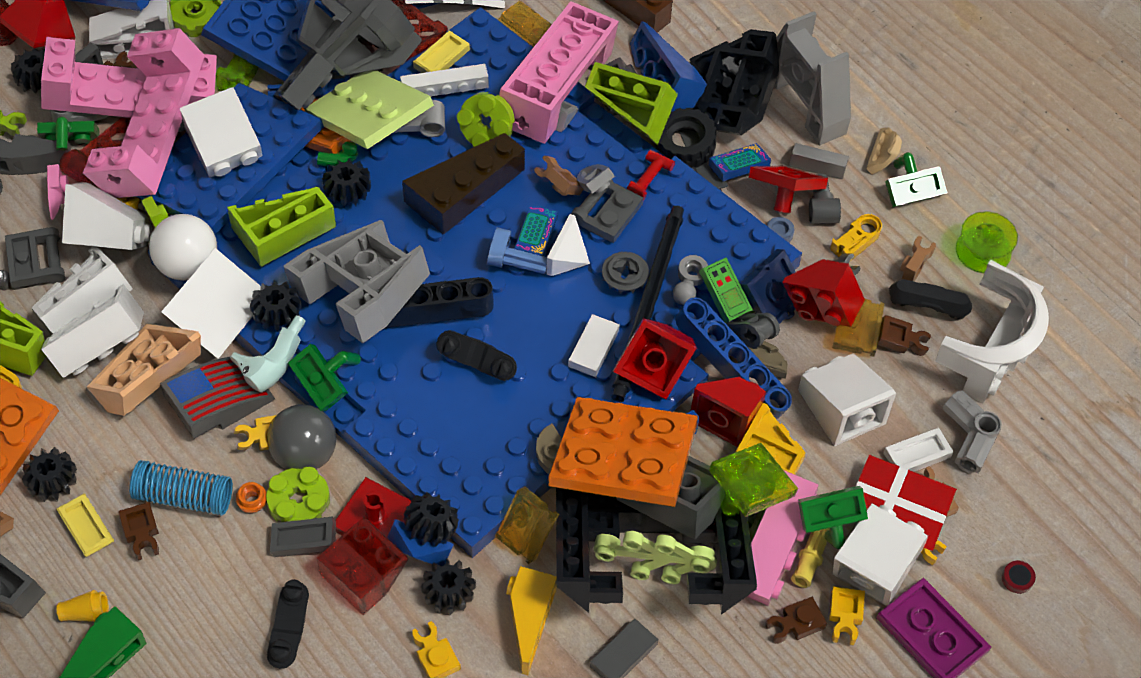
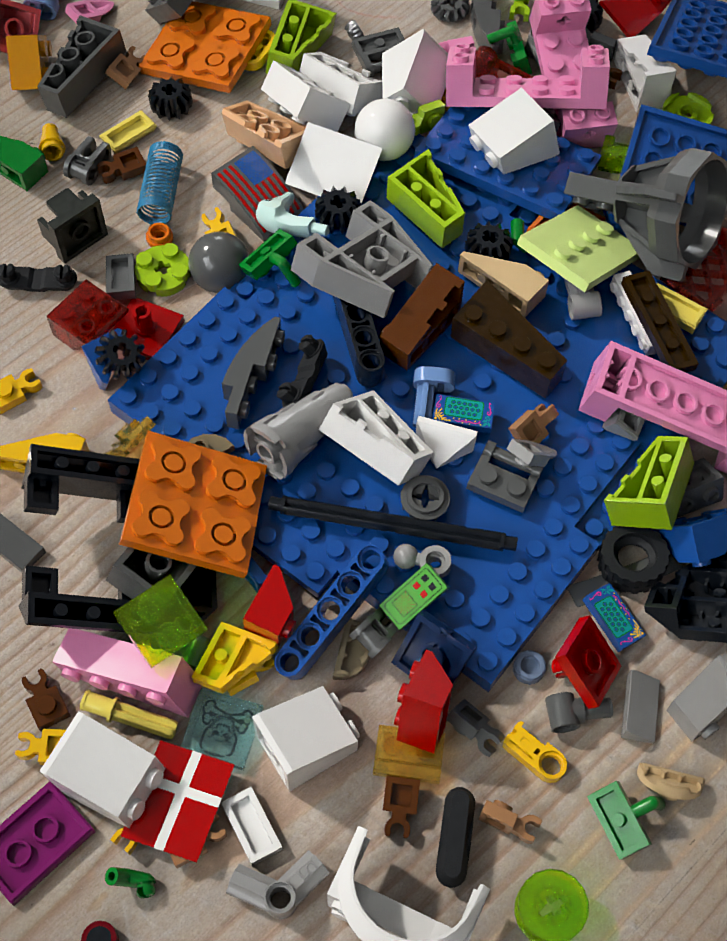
camera: 85 degrees right, 5 degrees up
(132, 574) = (84, 160): none -> dark grey piece
(231, 576) = (77, 223): none -> pearl dark grey panel
(398, 163) = (514, 280): none -> tan slope
(444, 251) = (423, 317): none -> reddish brown wedge
(450, 576) = (72, 389): black gear -> none
(457, 398) = (249, 365): none -> dark grey slope
(468, 61) = (659, 321): none -> dark brown plate
(489, 105) = (585, 345): lime plate -> none
(551, 364) = (293, 431): none -> light grey cone
(565, 292) = (377, 436): none -> white wedge
(593, 345) = (332, 477): white tile -> none
(635, 545) = (87, 544): yellowish green plant -> none
(655, 357) = (313, 526): red slope -> none
(657, 162) = (579, 522): red piece -> none
(831, 464) = (222, 727): none -> clear light blue tile
(833, 511) = (133, 707): green plate -> none
(968, 544) = (131, 878): none -> green arm

